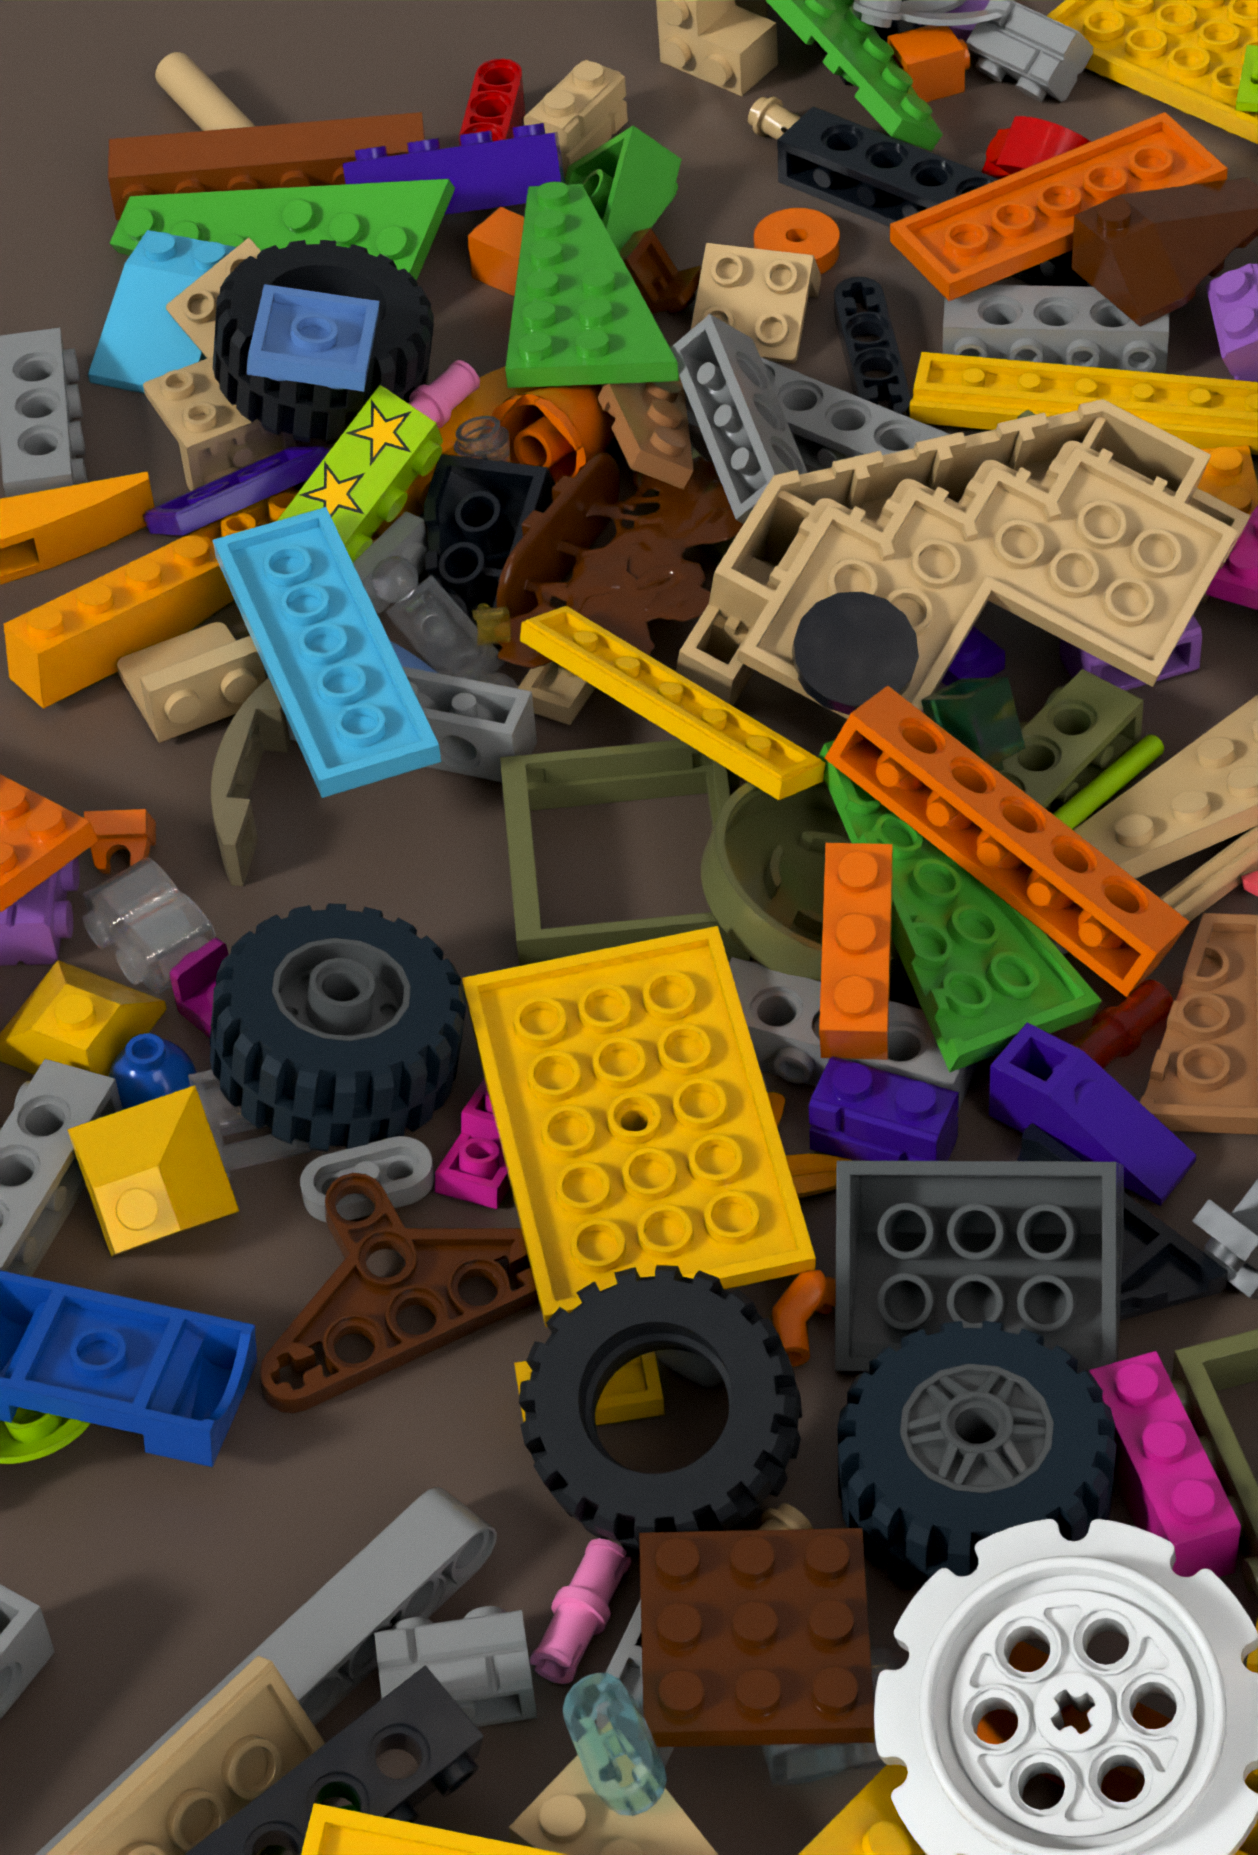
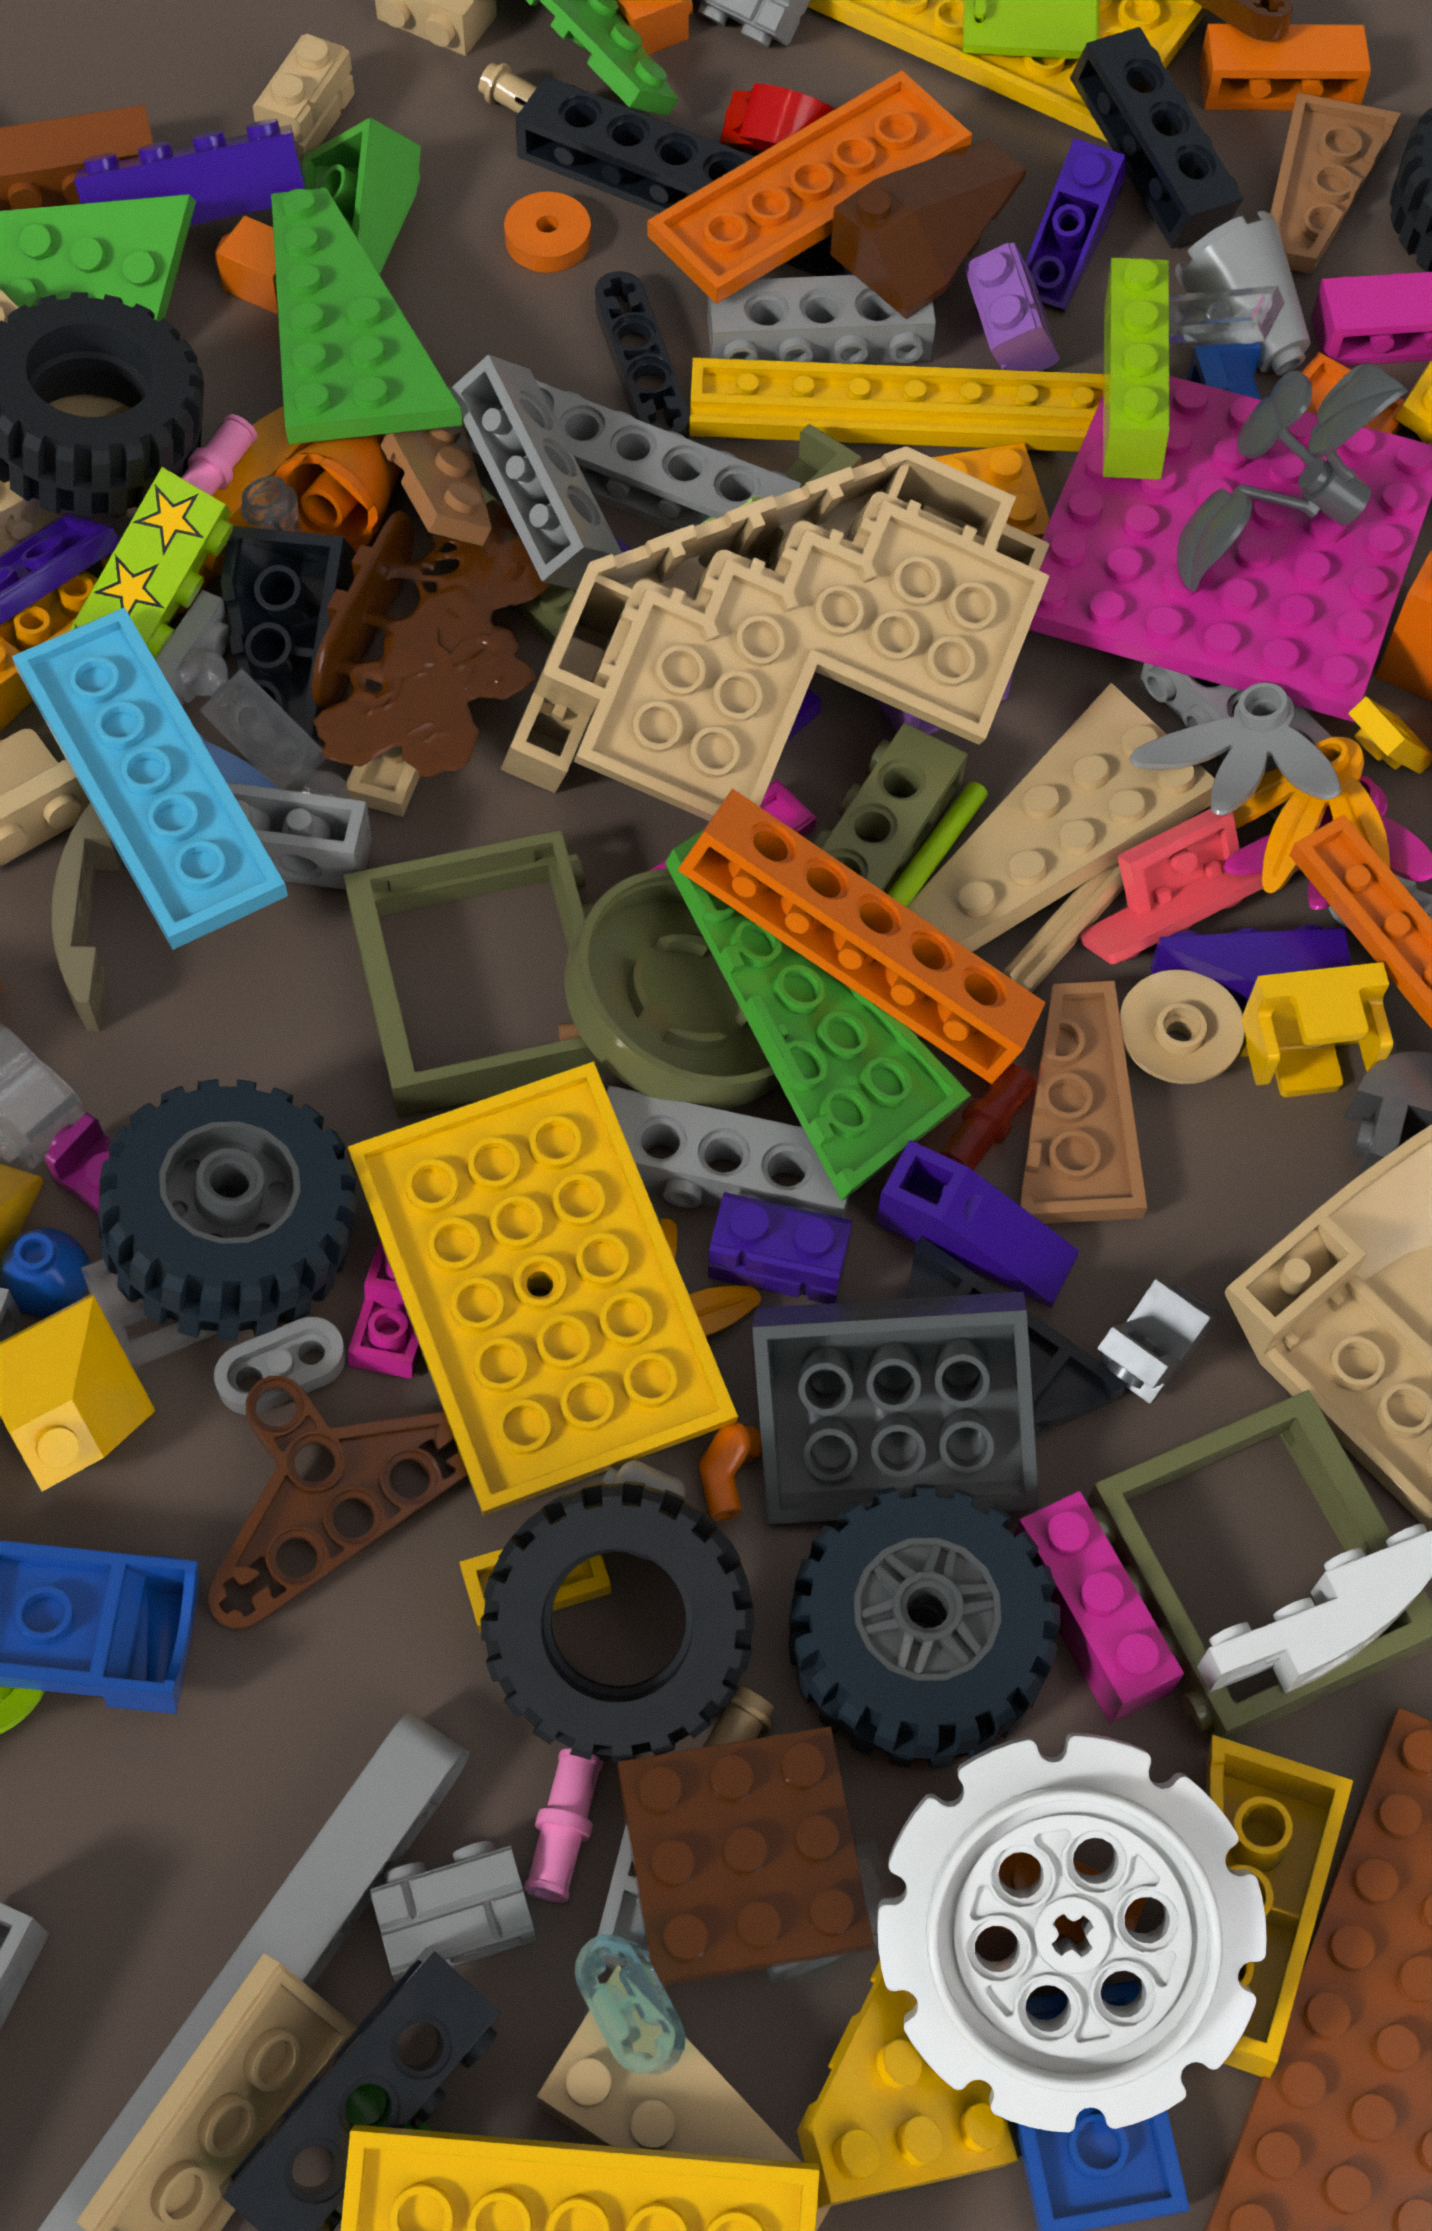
camera: 15 degrees left, 15 degrees up
(313, 338) = (85, 423): medium blue plate -> none
(492, 624) = (313, 722): clear yellow hand -> none
(495, 100) = (218, 88): red beam -> none
(656, 275) = (414, 286): reddish brown bracket -> none
(673, 702) = (511, 806): yellow tile -> none
(758, 295) = (515, 309): tan bracket -> none
(853, 650) = (692, 748): black tile -> none
(856, 951) = (739, 1087): orange brick -> none
(979, 716) = (817, 803): clear green brick -> none

